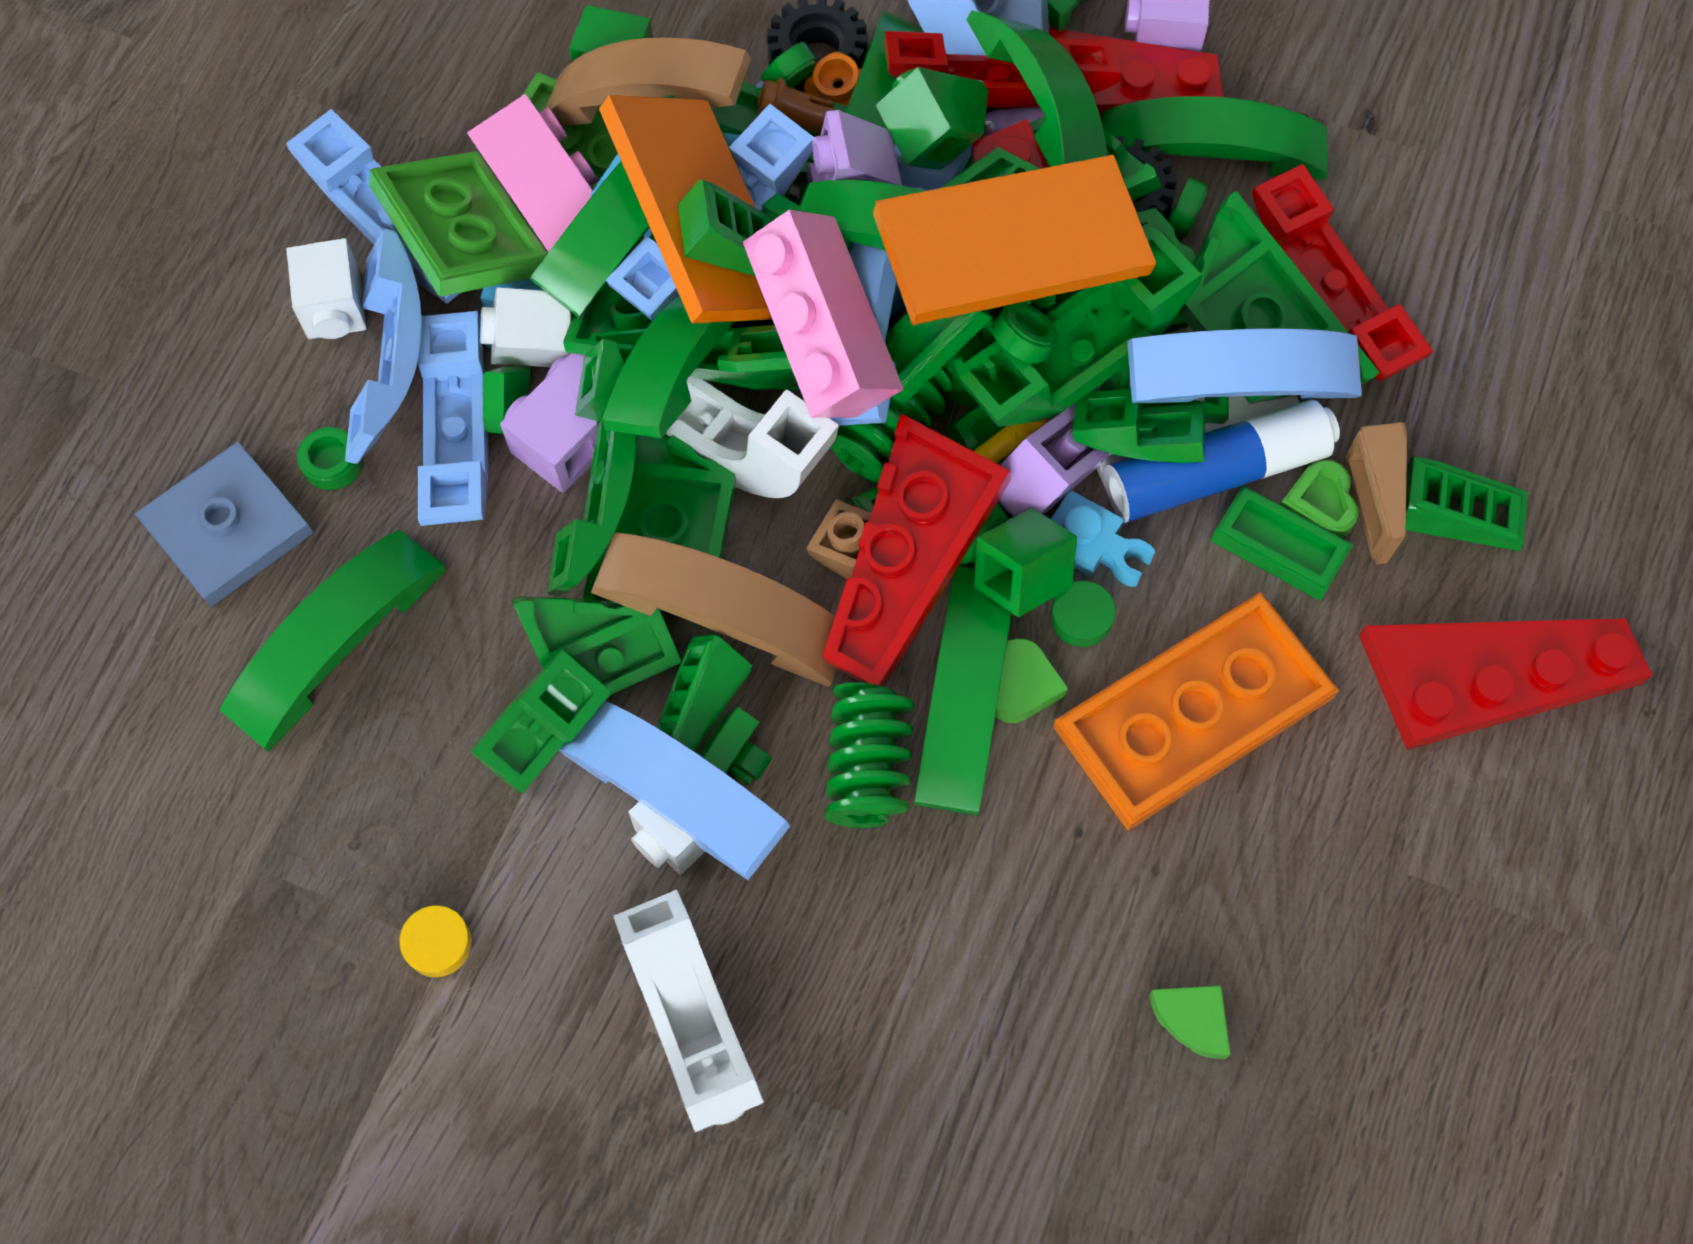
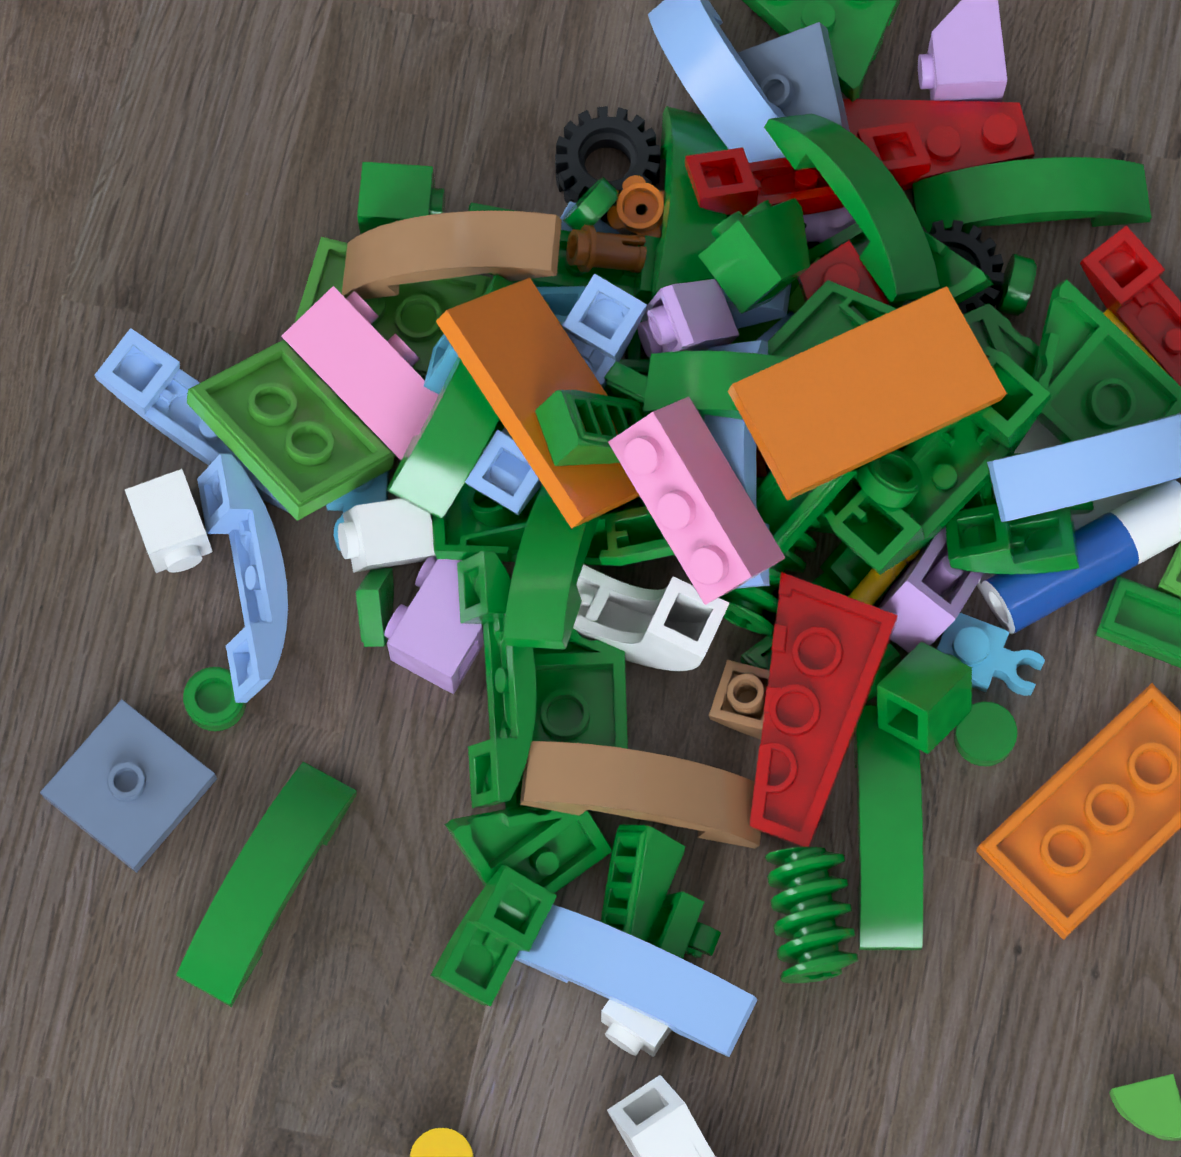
camera: 10 degrees left, 5 degrees up
(454, 437) = (332, 642): light blue slope -> none
(1027, 682) = (945, 812): bright green tile -> none

